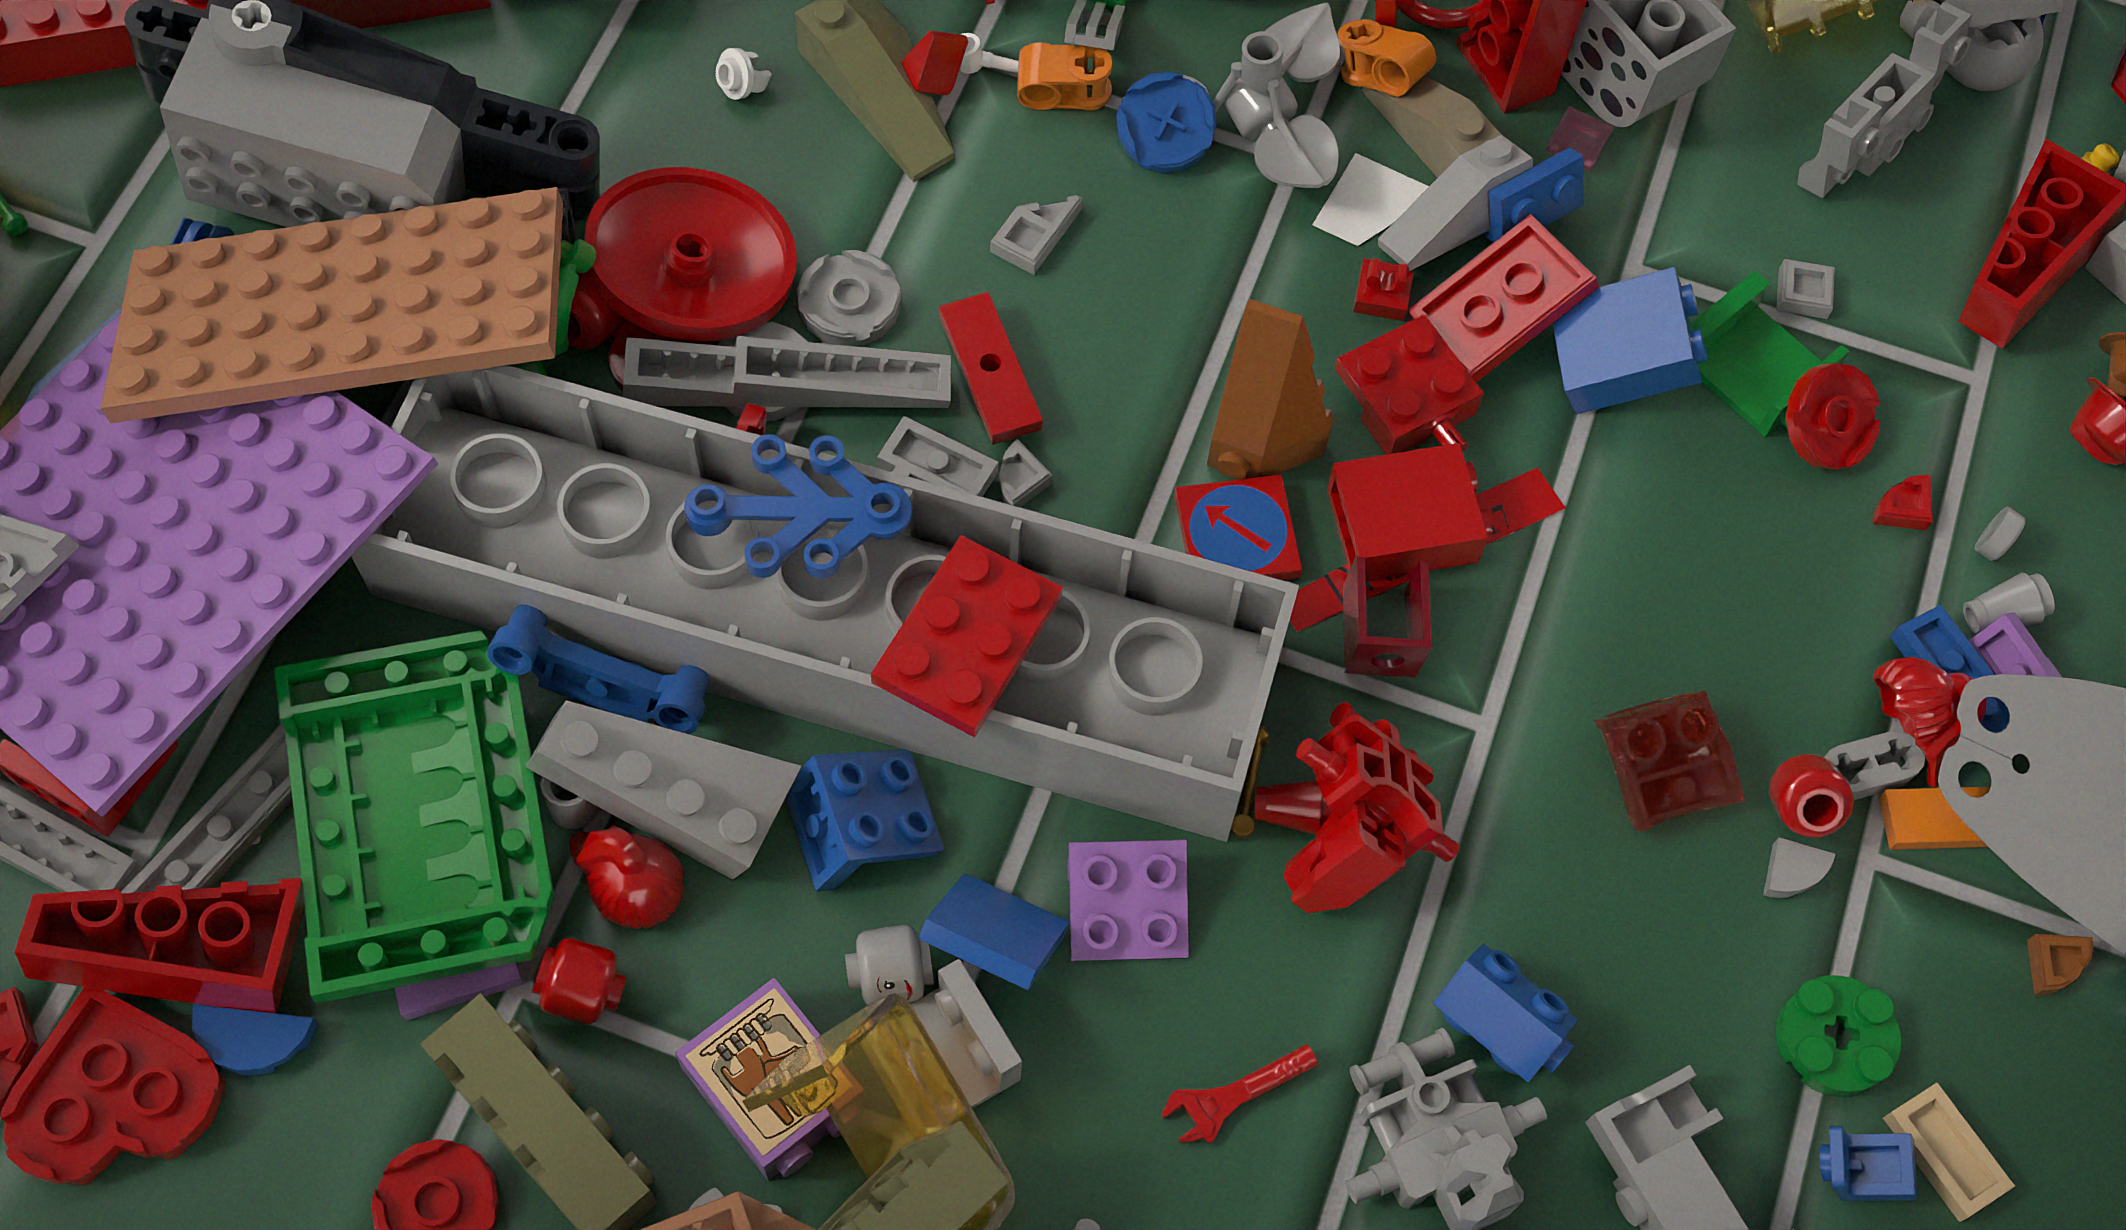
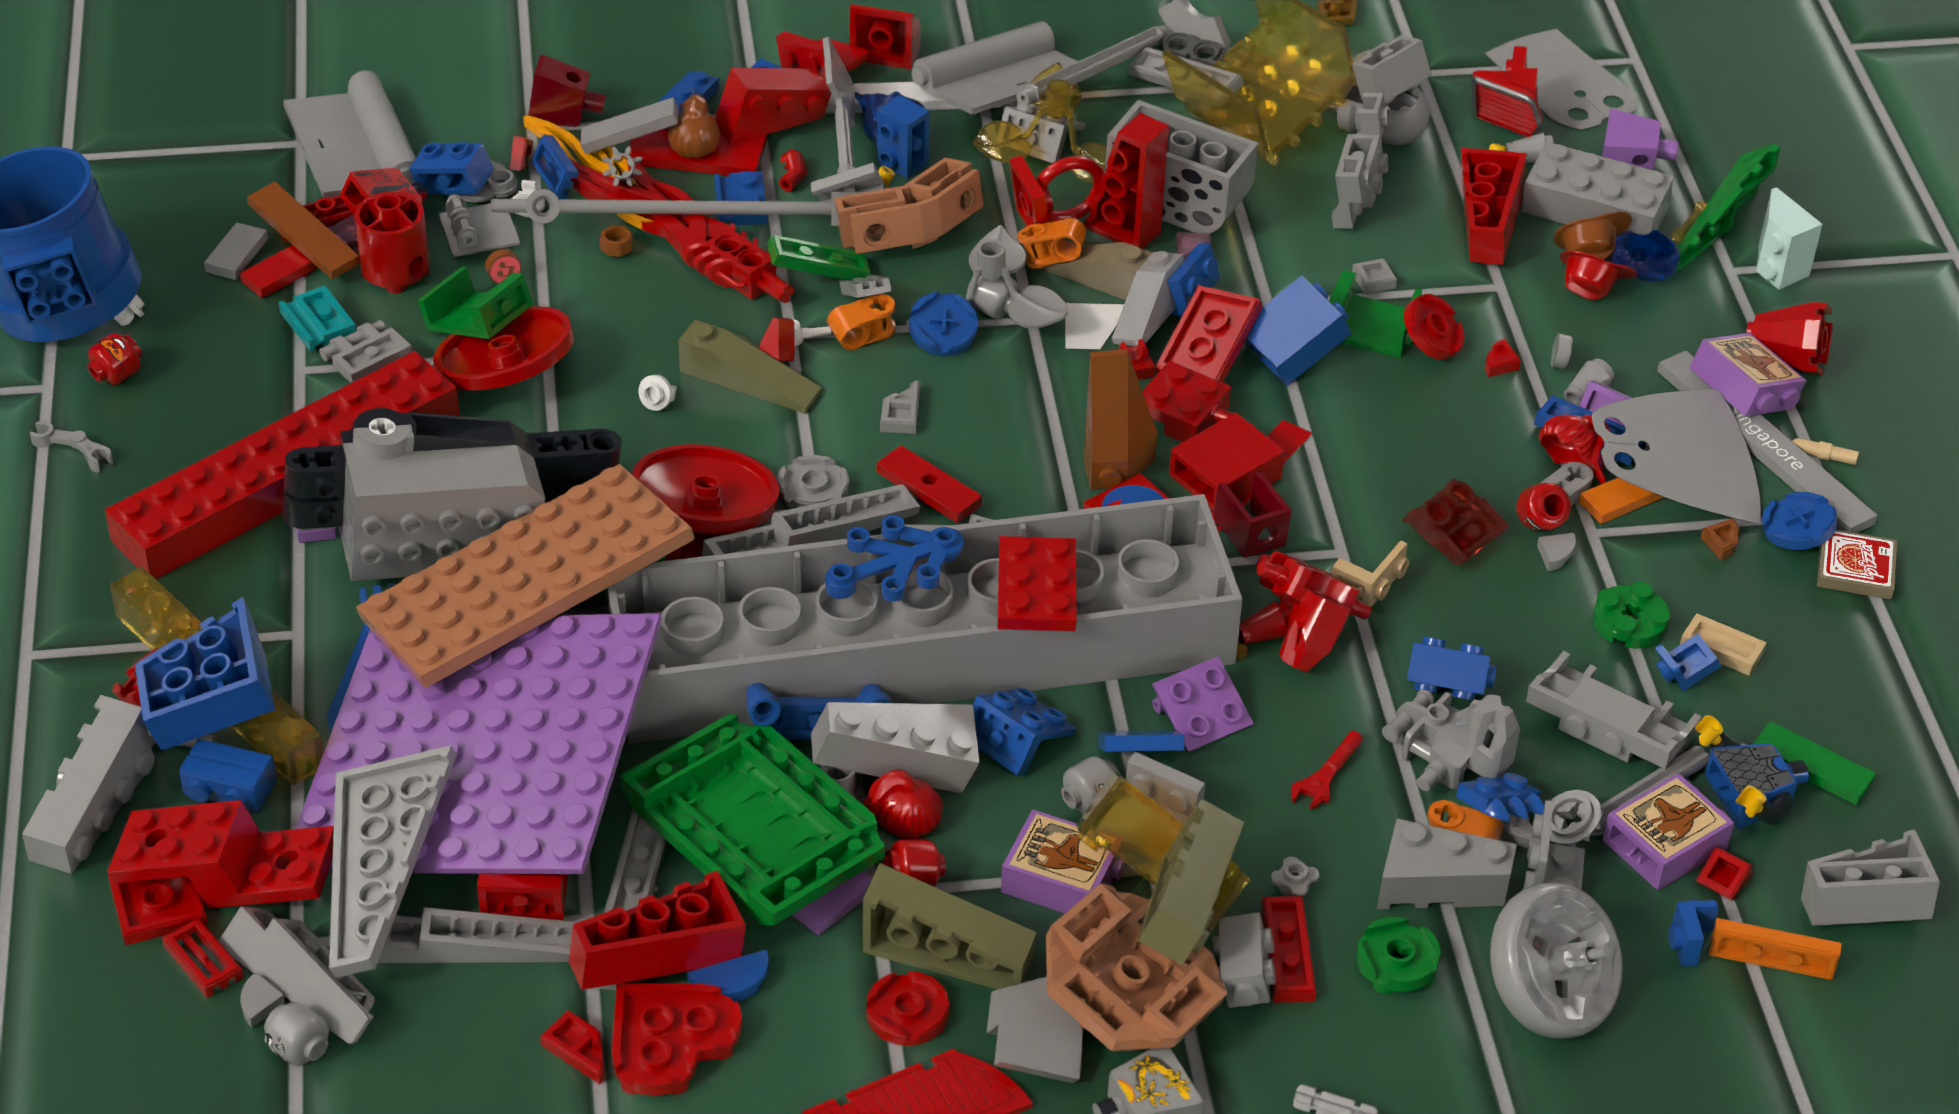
camera: 25 degrees left, 20 degrees down
(1465, 801) = (1377, 584): none -> tan bracket

